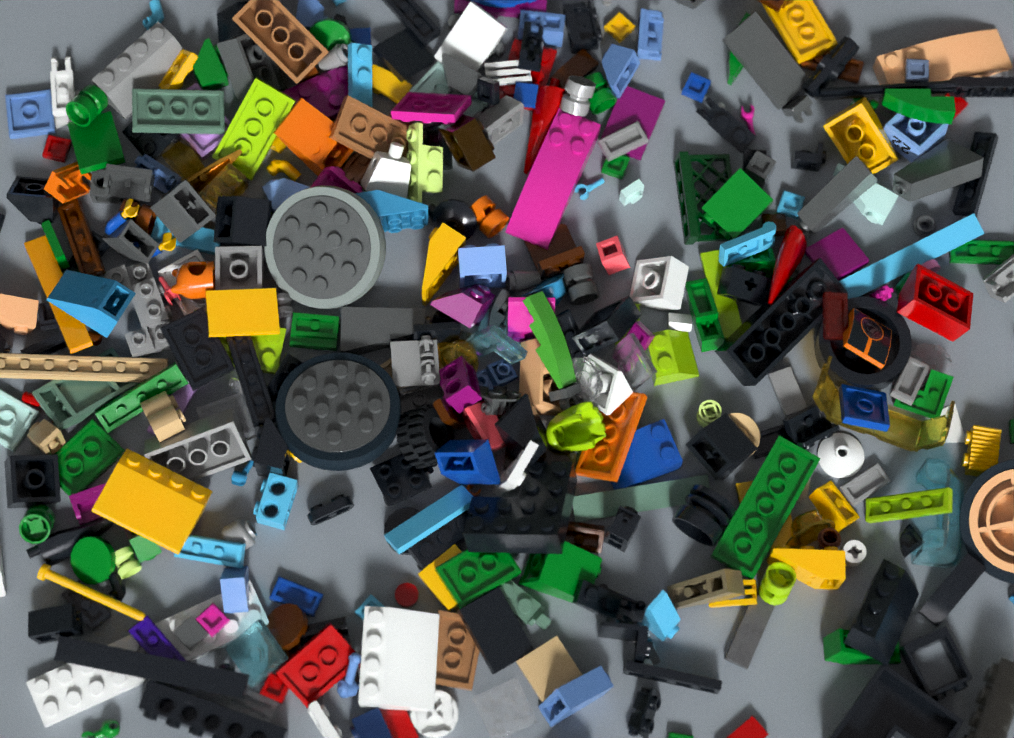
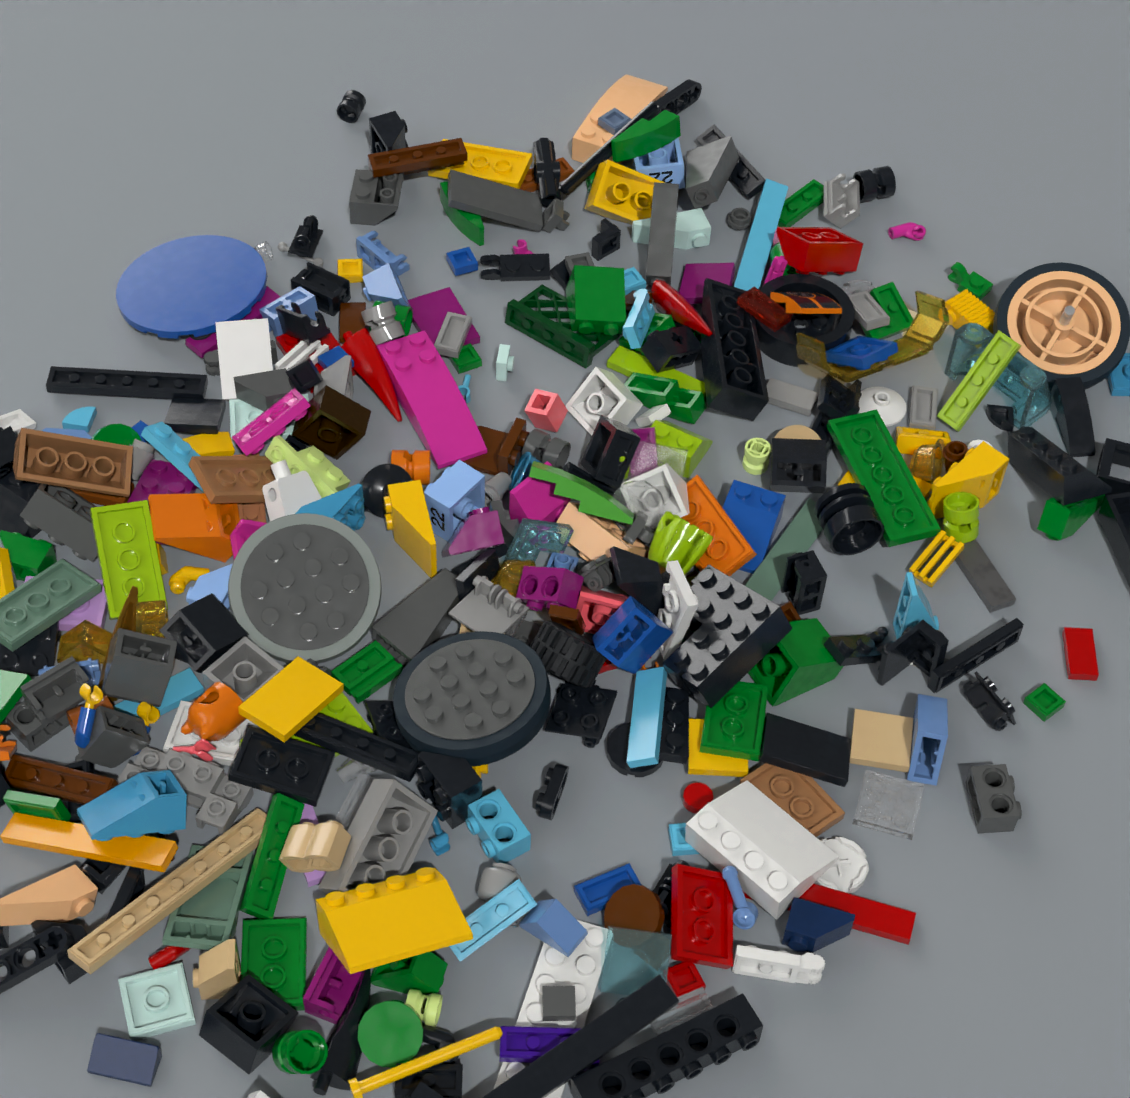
camera: 45 degrees left, 20 degrees down
(212, 620) = (564, 971): dark pink tile -> none
(524, 606) = (806, 712): sand green hinge -> none
(707, 589) = (921, 560): dark tan slope -> none

